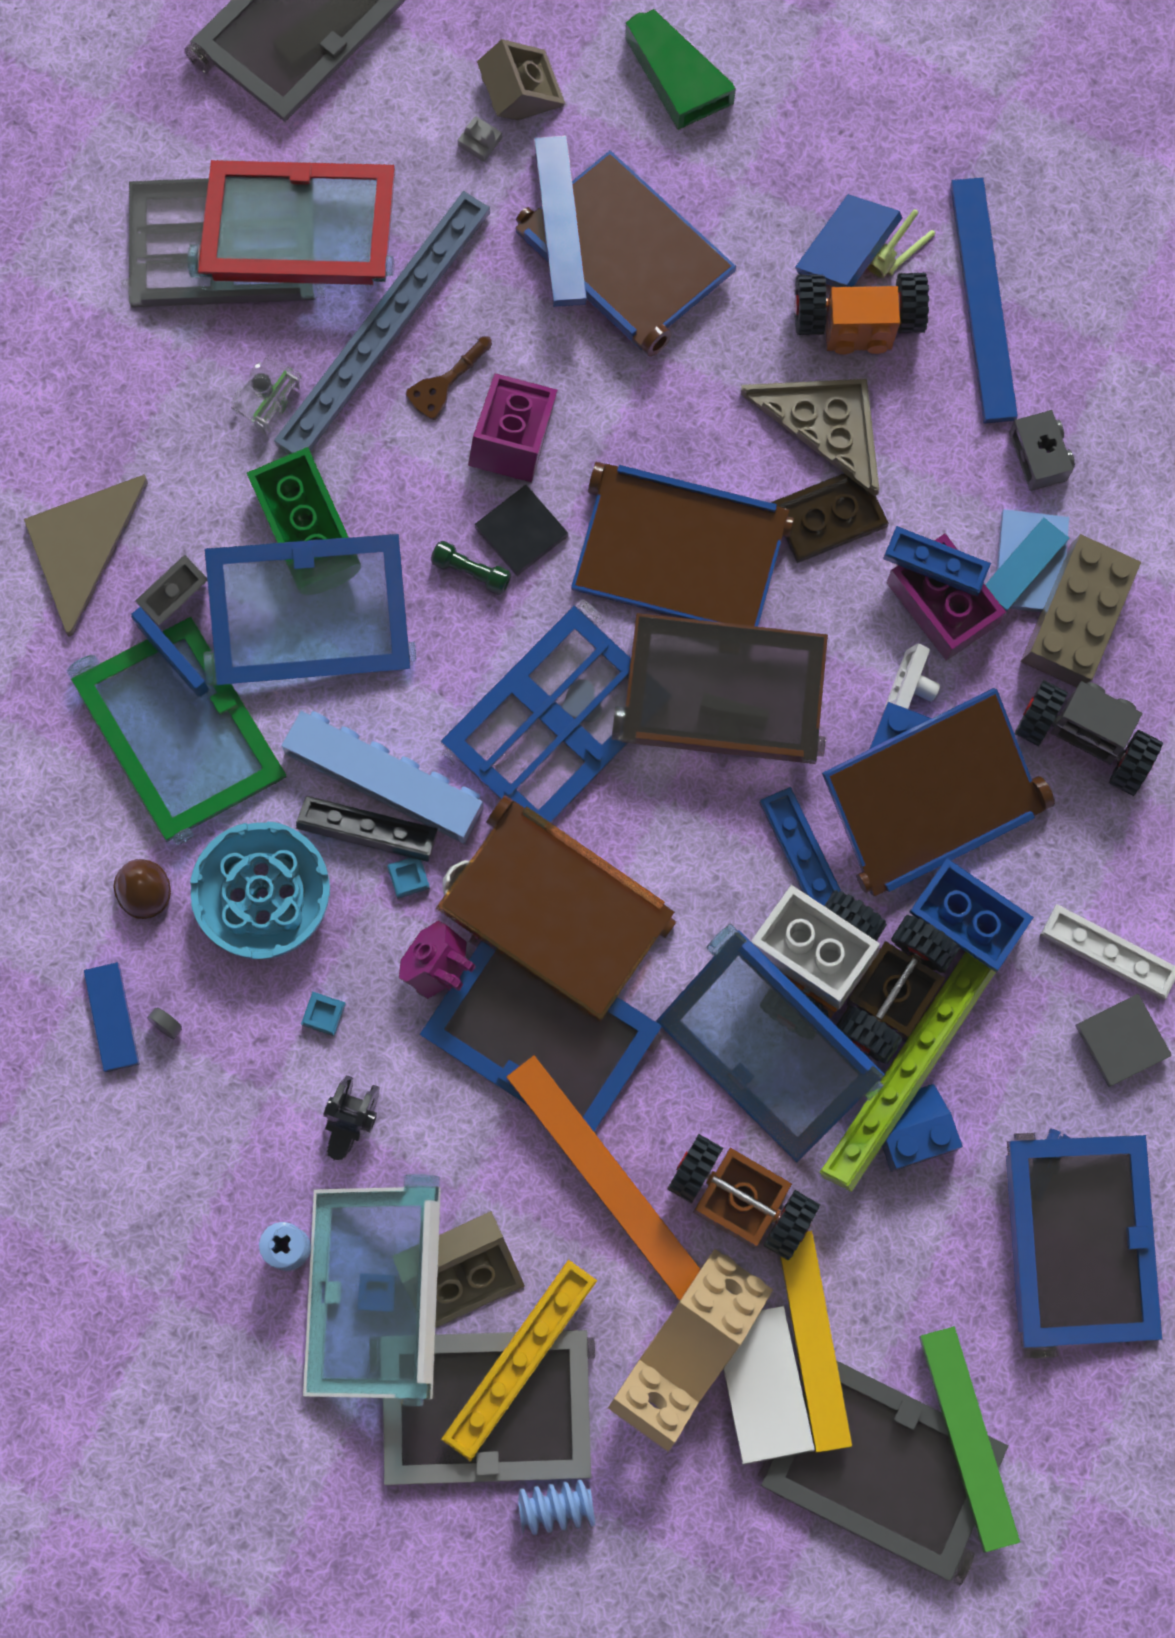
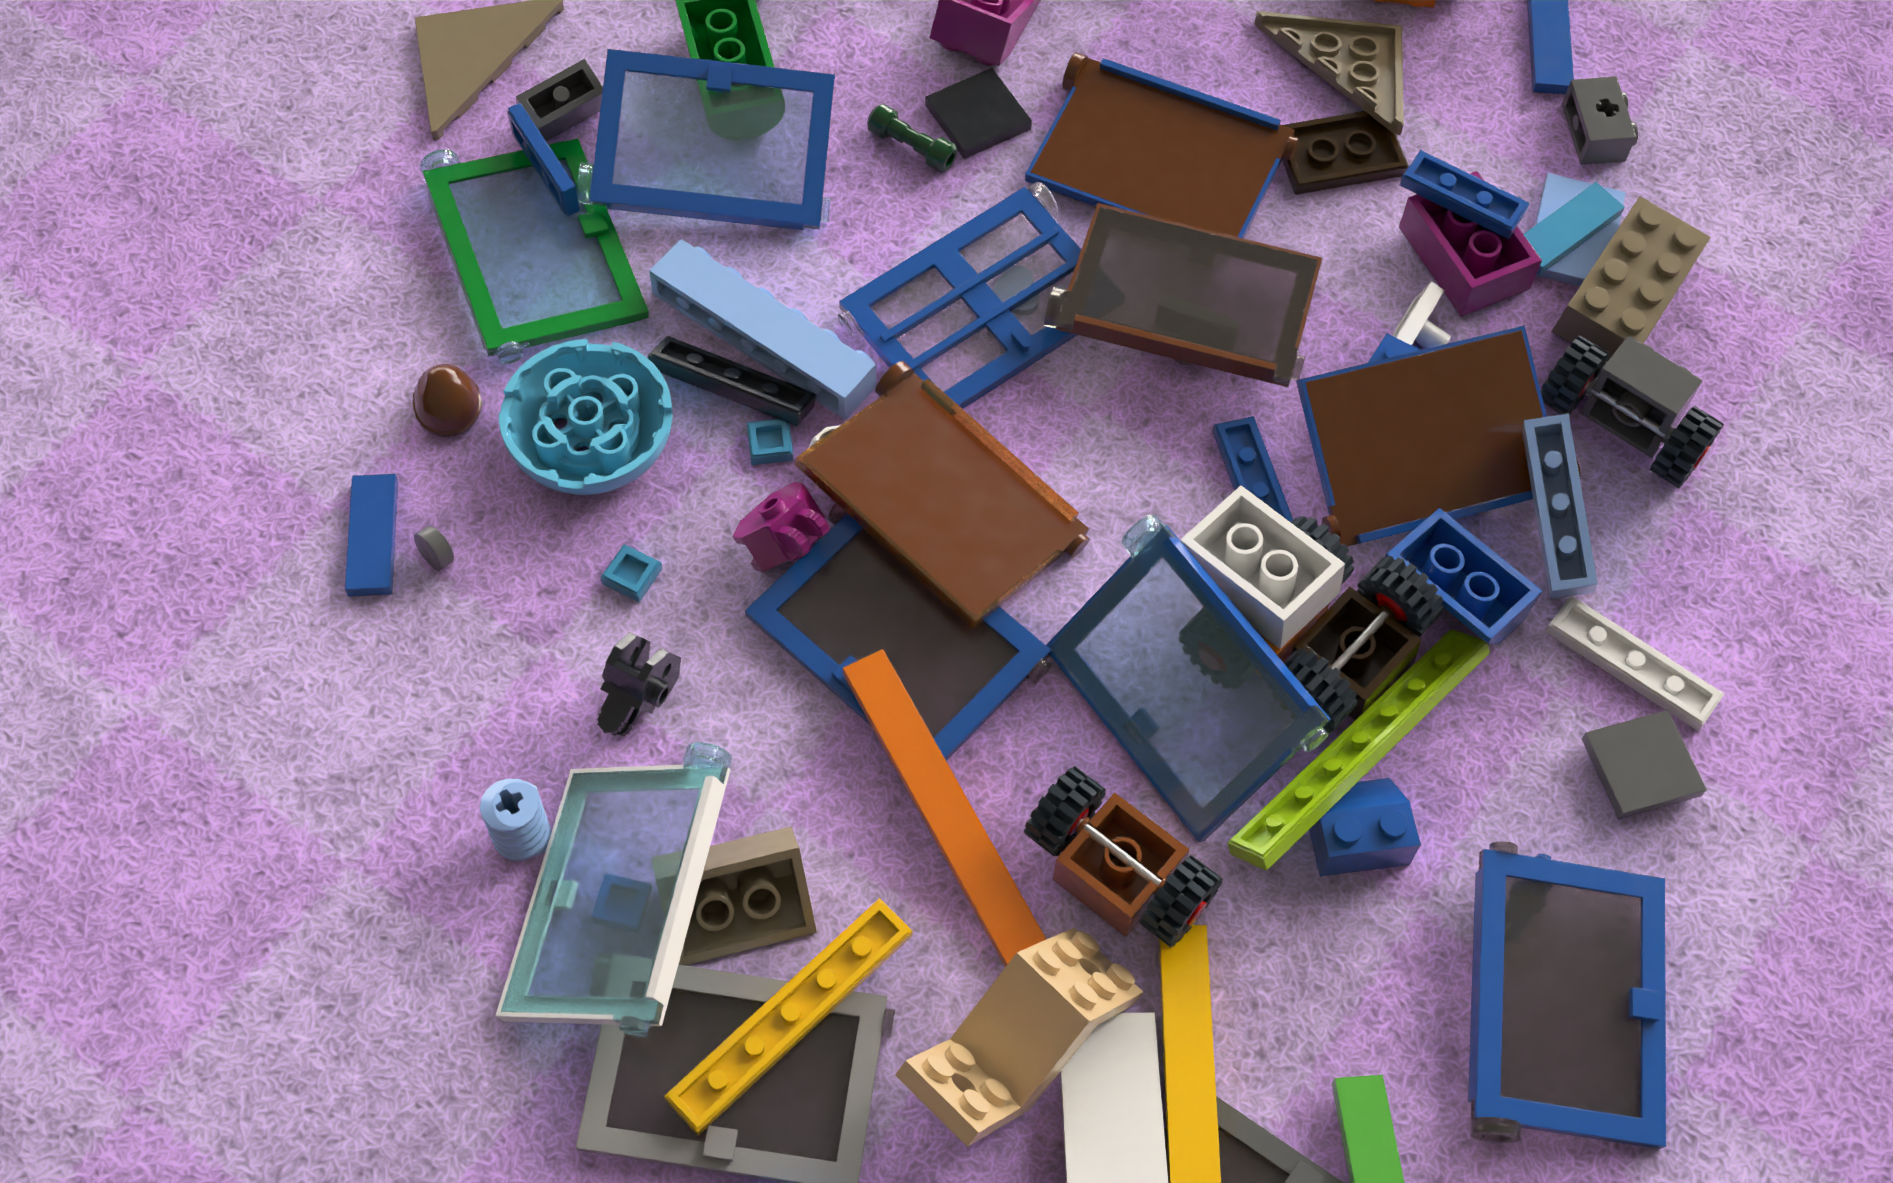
camera: 10 degrees right, 15 degrees down
(1040, 839) = (1559, 506): none -> light blue brick

